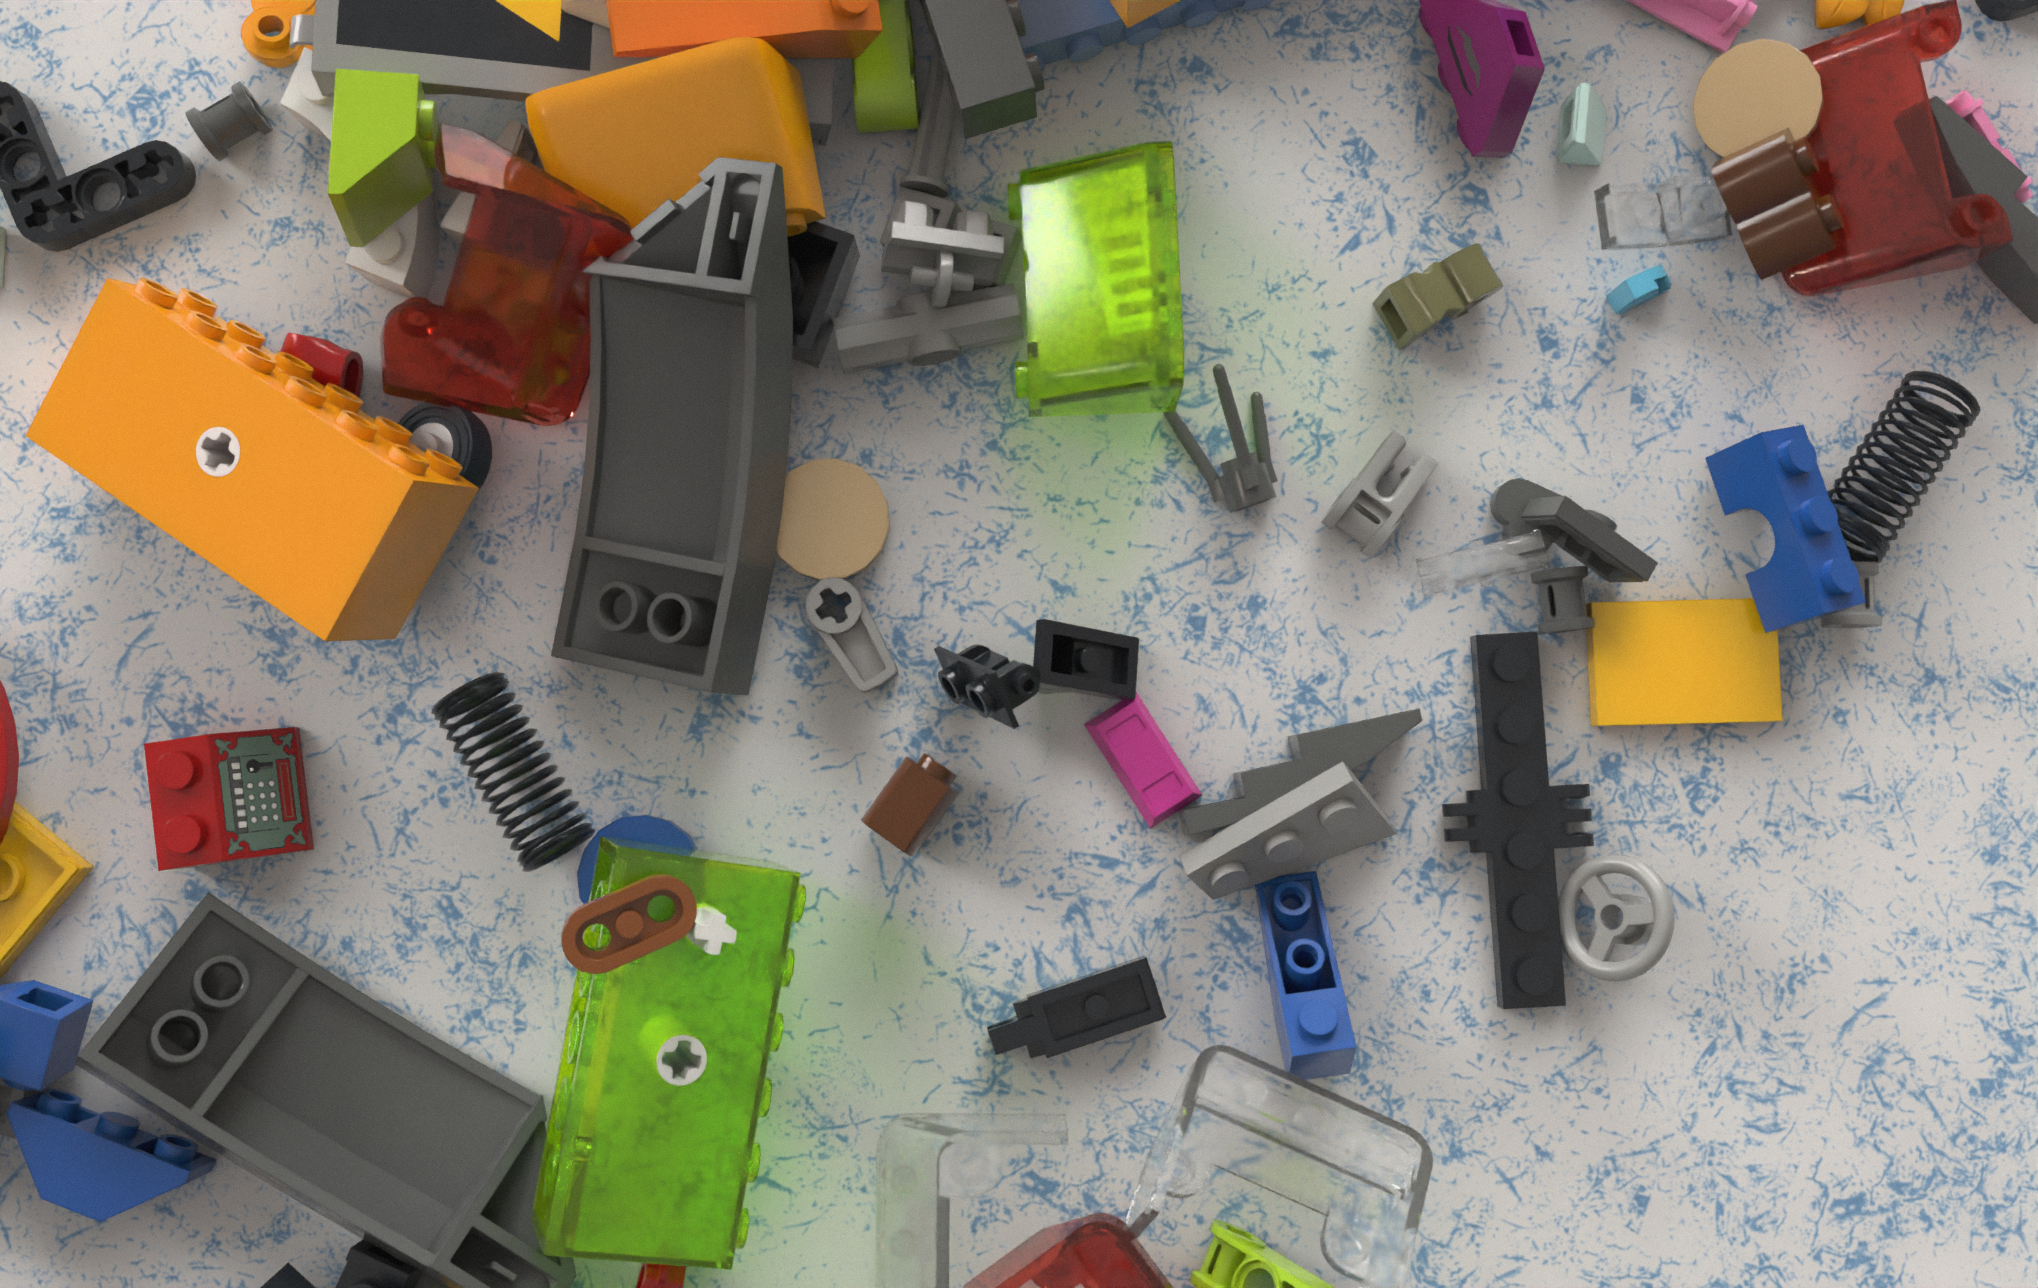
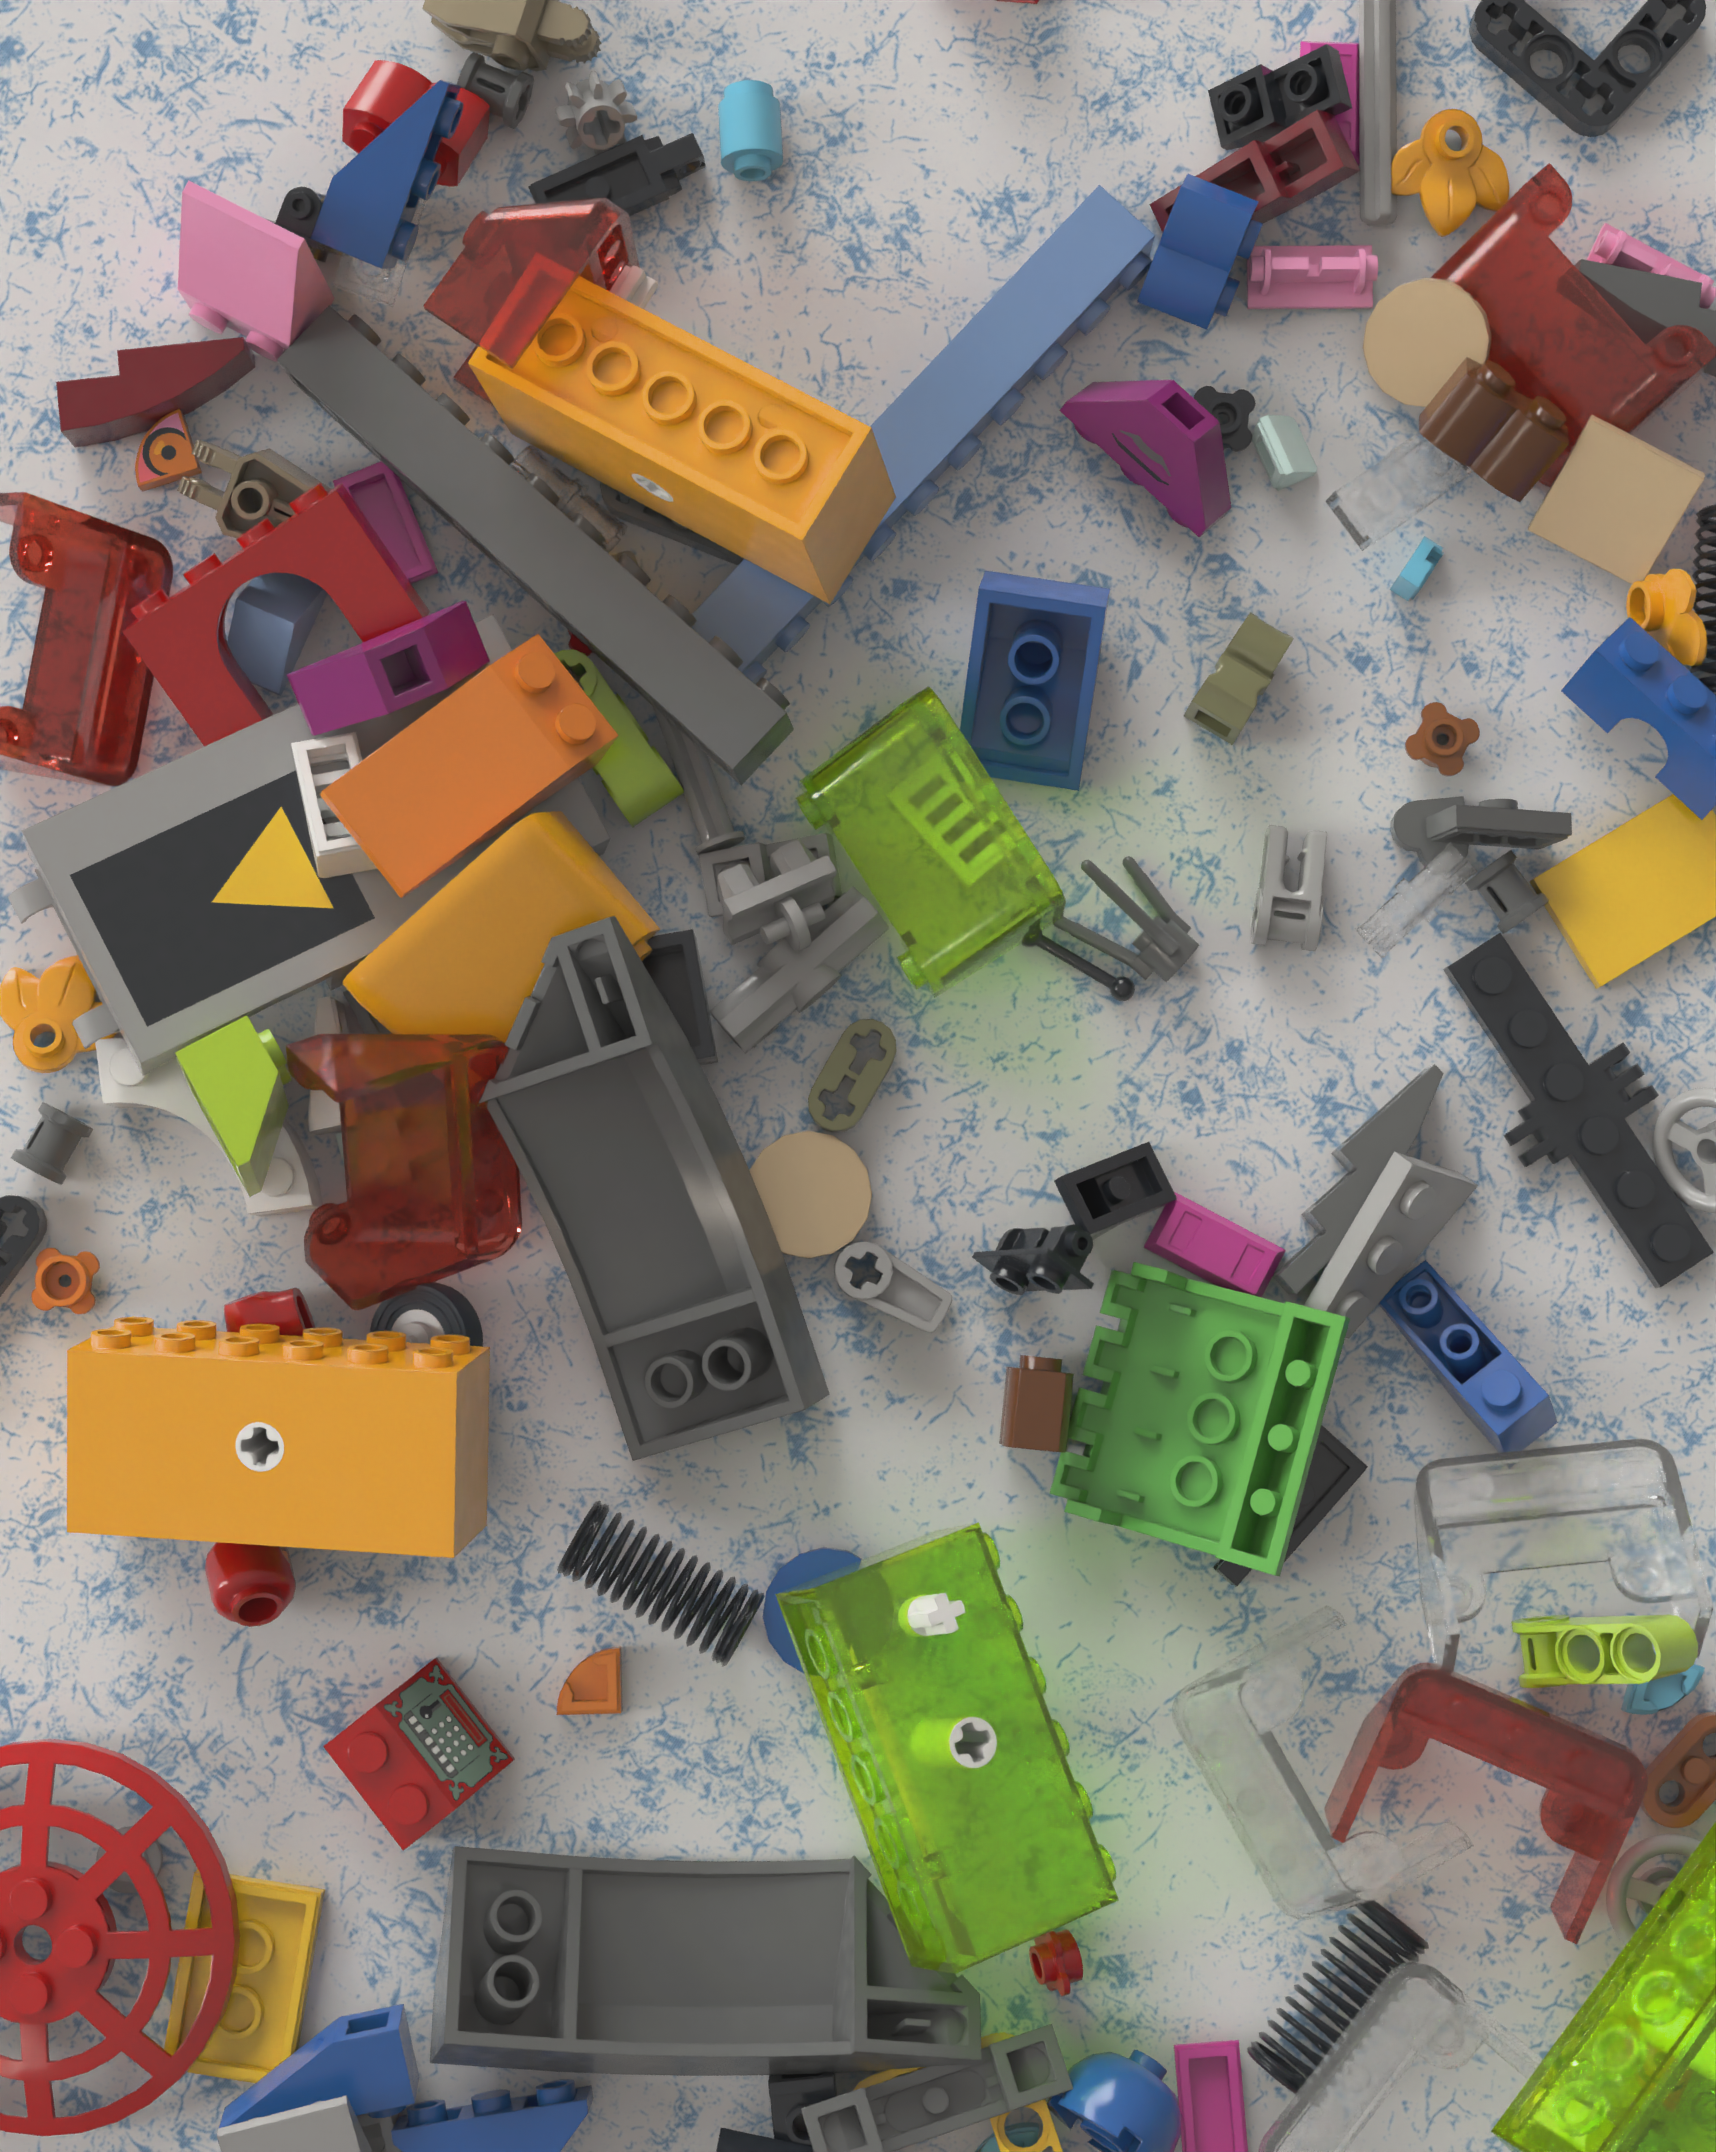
camera: 25 degrees left, 0 degrees up
(161, 231) = (51, 1293): none -> orange plate
(170, 575) = (250, 1582): none -> red head
(412, 826) = (594, 1685): none -> orange tile
(630, 926) = (864, 1648): dark orange plate -> none
(915, 429) = (839, 1067): none -> olive beam
(1047, 893) = (1200, 1415): none -> bright green slope
(1189, 497) = (1120, 987): none -> black hinge
(1264, 196) = (1033, 677): none -> blue slope
(1562, 438) = (1445, 757): none -> dark orange plate
(1564, 71) = (1237, 408): none -> black plate
(1839, 440) = (1664, 610): none -> light orange plate
(1844, 324) = (1616, 501): none -> tan tile

